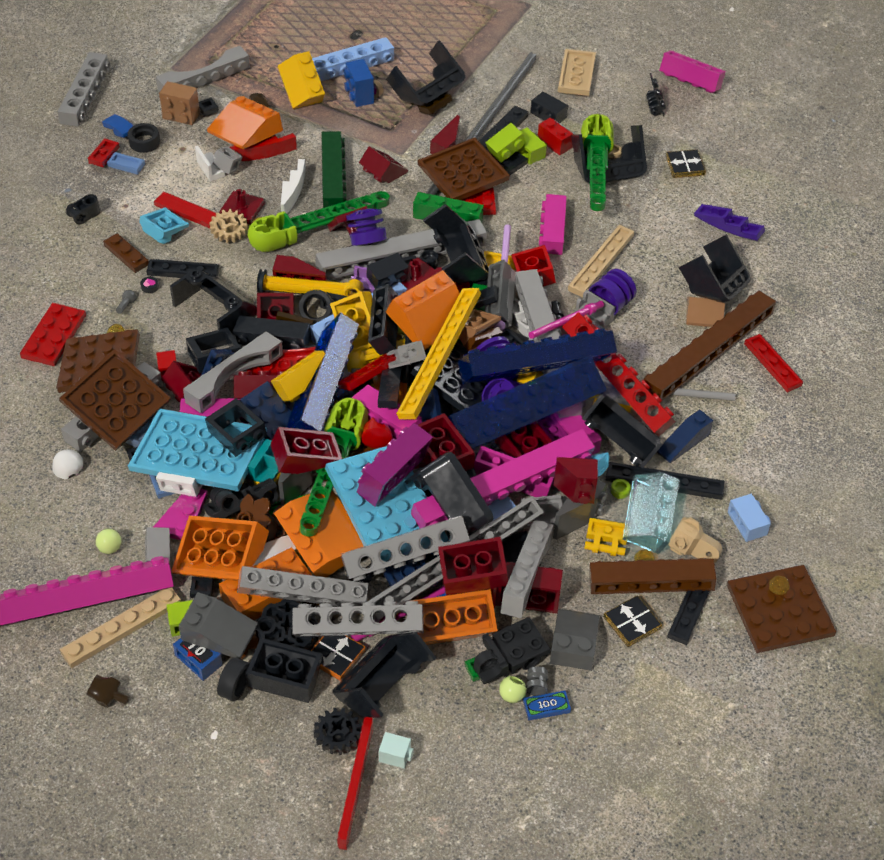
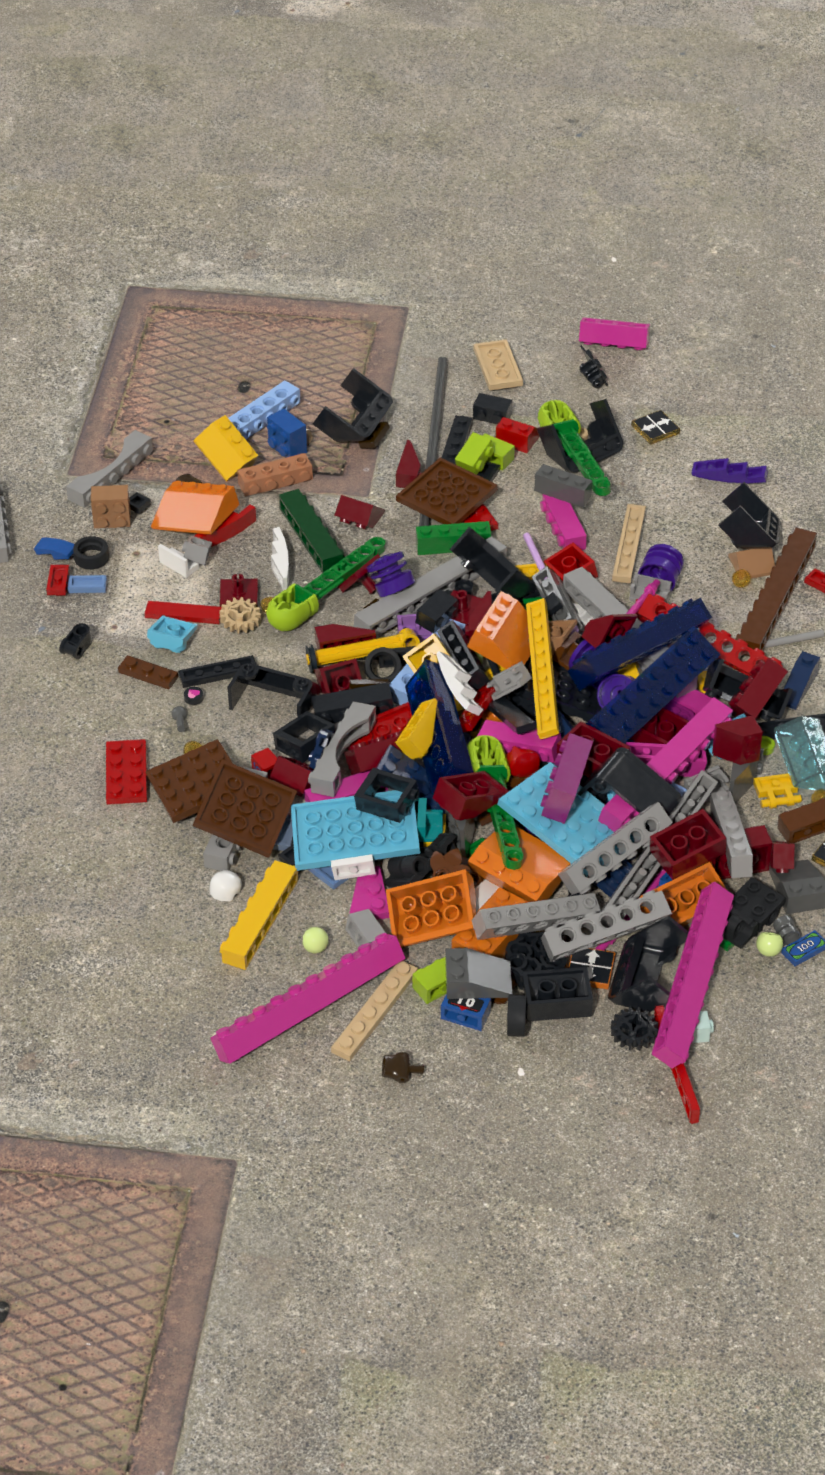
camera: 20 degrees left, 5 degrees down
(76, 501) = (259, 915): none -> yellow brick
(201, 585) = (430, 951): black plate -> none
(332, 114) = (275, 474): none -> nougat brick
(358, 345) = (457, 681): none -> white slope
(409, 700) = (693, 975): none -> dark pink brick
(515, 332) = (607, 627): none -> dark red slope
(564, 191) = (563, 485): none -> dark grey brick
(569, 603) = (782, 856): none -> dark red slope
(631, 433) = (757, 688): none -> dark red brick
(685, 322) = (741, 578): none -> clear yellow plate

